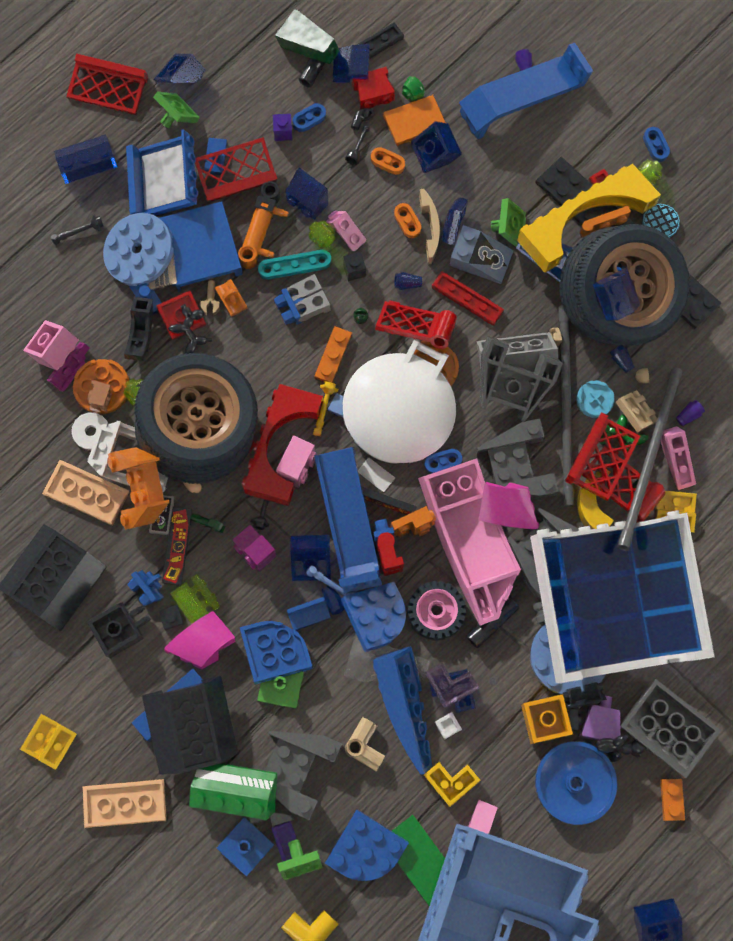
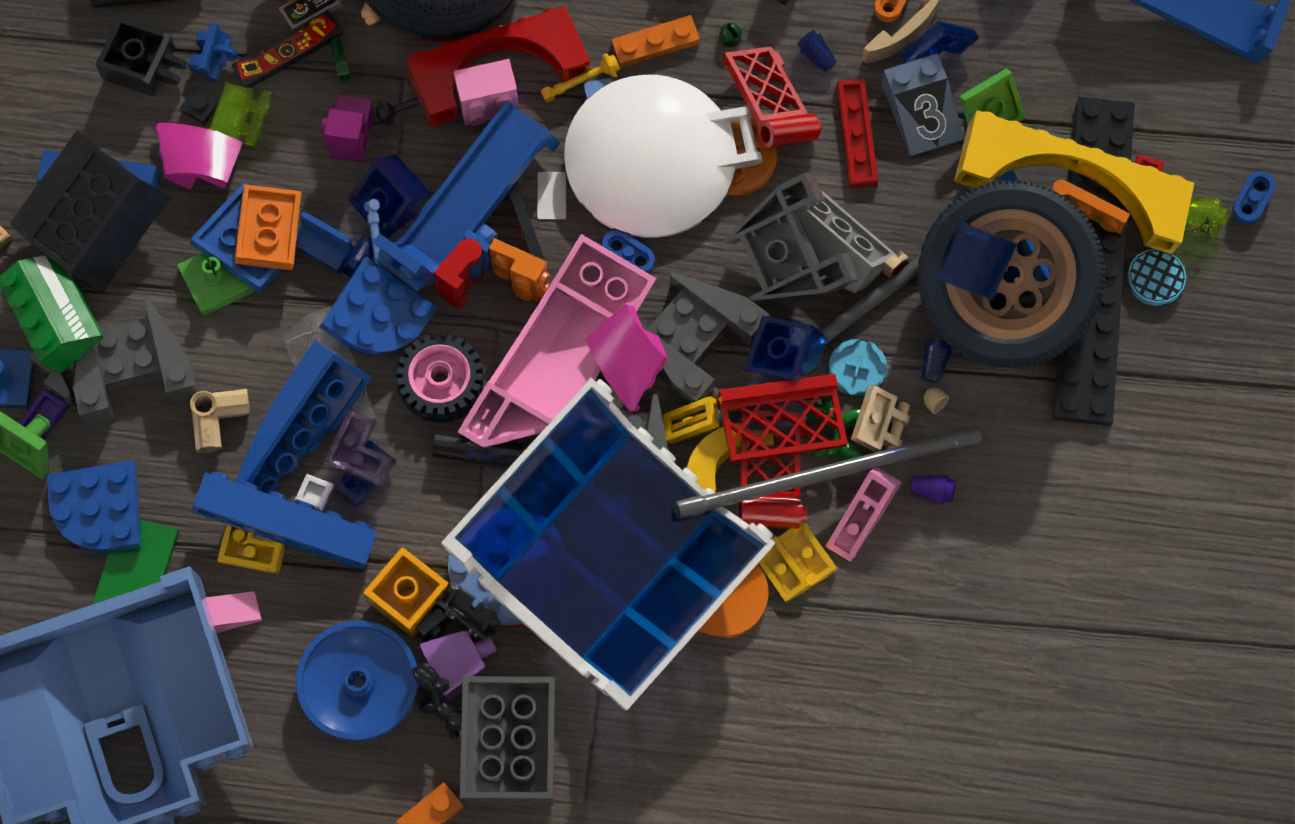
camera: 55 degrees right, 5 degrees down
(279, 635) = (268, 227): none -> orange tile
(458, 755) = (283, 520): none -> blue brick
(567, 427) = (785, 349): none -> clear blue slope
(572, 489) = (691, 425): none -> yellow tile

